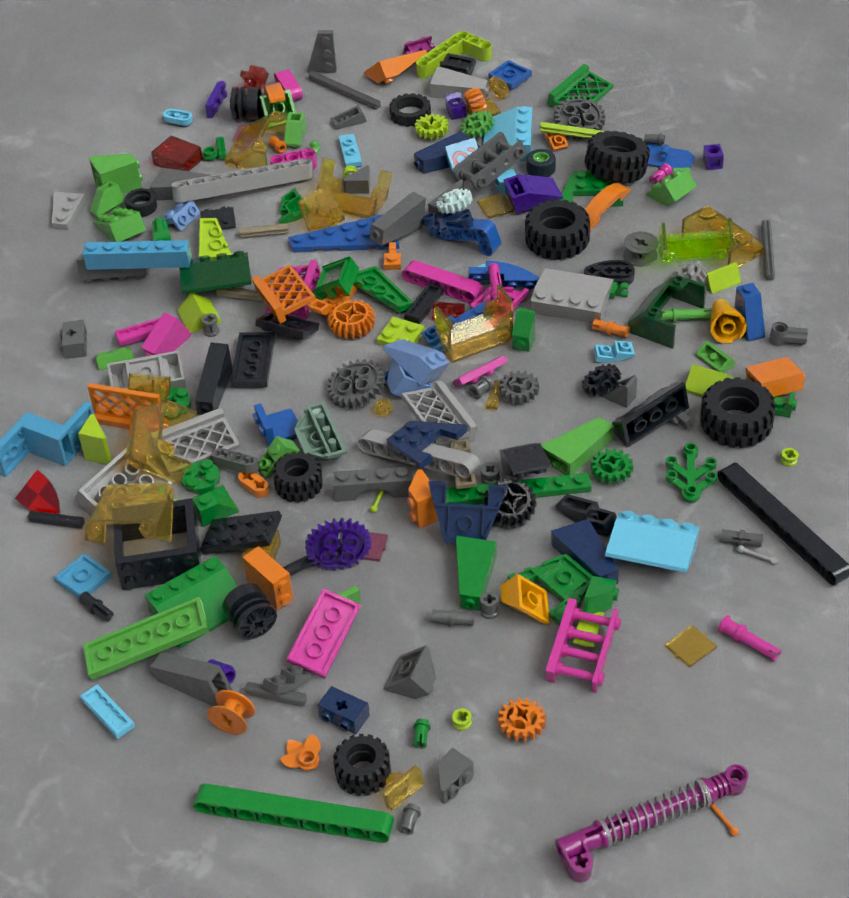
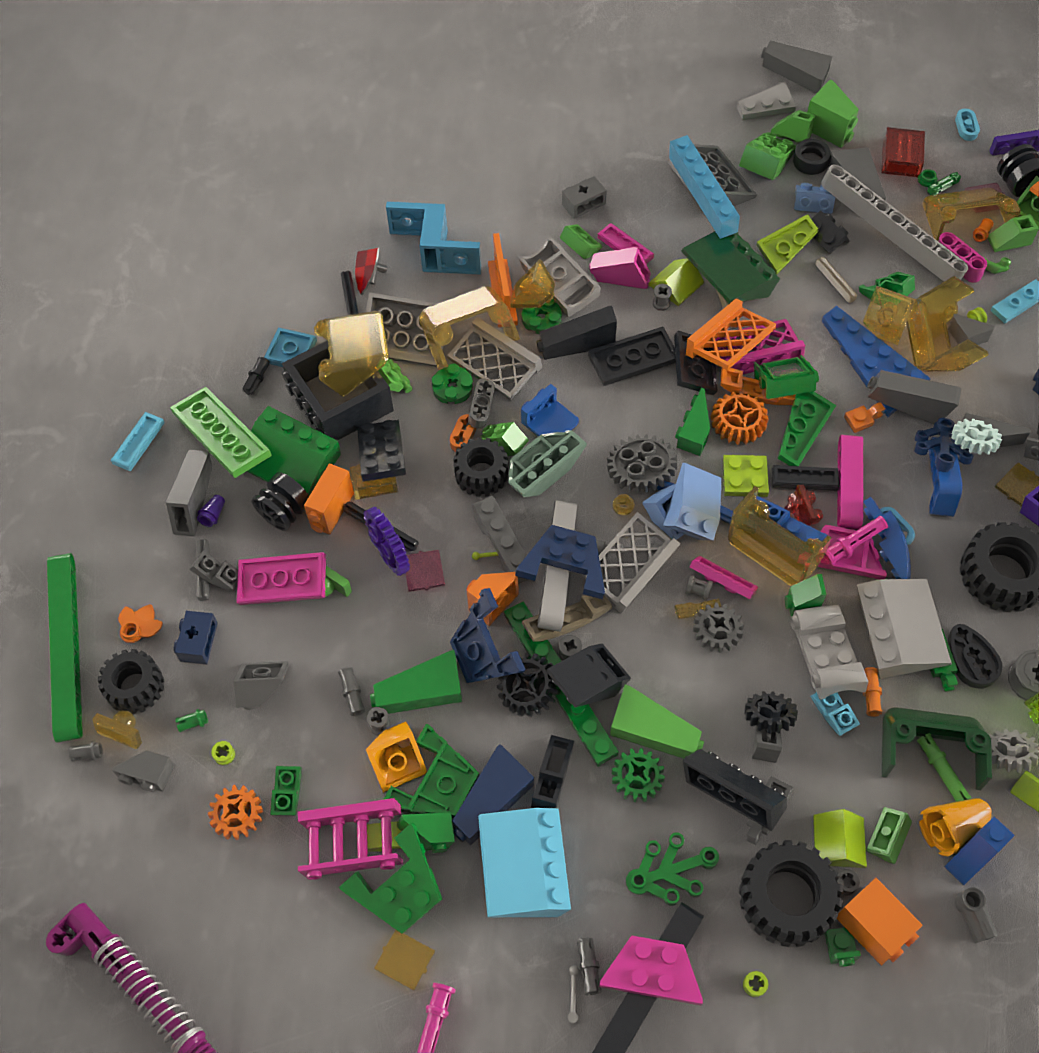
camera: 65 degrees right, 15 degrees up
(45, 178) = (797, 64): none -> dark grey slope
(94, 442) = (451, 275): lime slope -> none
(160, 230) = (772, 196): green piece -> none
(214, 505) = (418, 410): green slope -> none
(231, 711) = (154, 540): orange piece -> none
(342, 343) = (696, 426): none -> green slope
(516, 685) = (286, 790): none -> green slope
(570, 337) = (828, 650): none -> light grey piece
(643, 622) = (406, 894): none -> green wing
(763, 495) = (653, 970): none -> dark pink wing

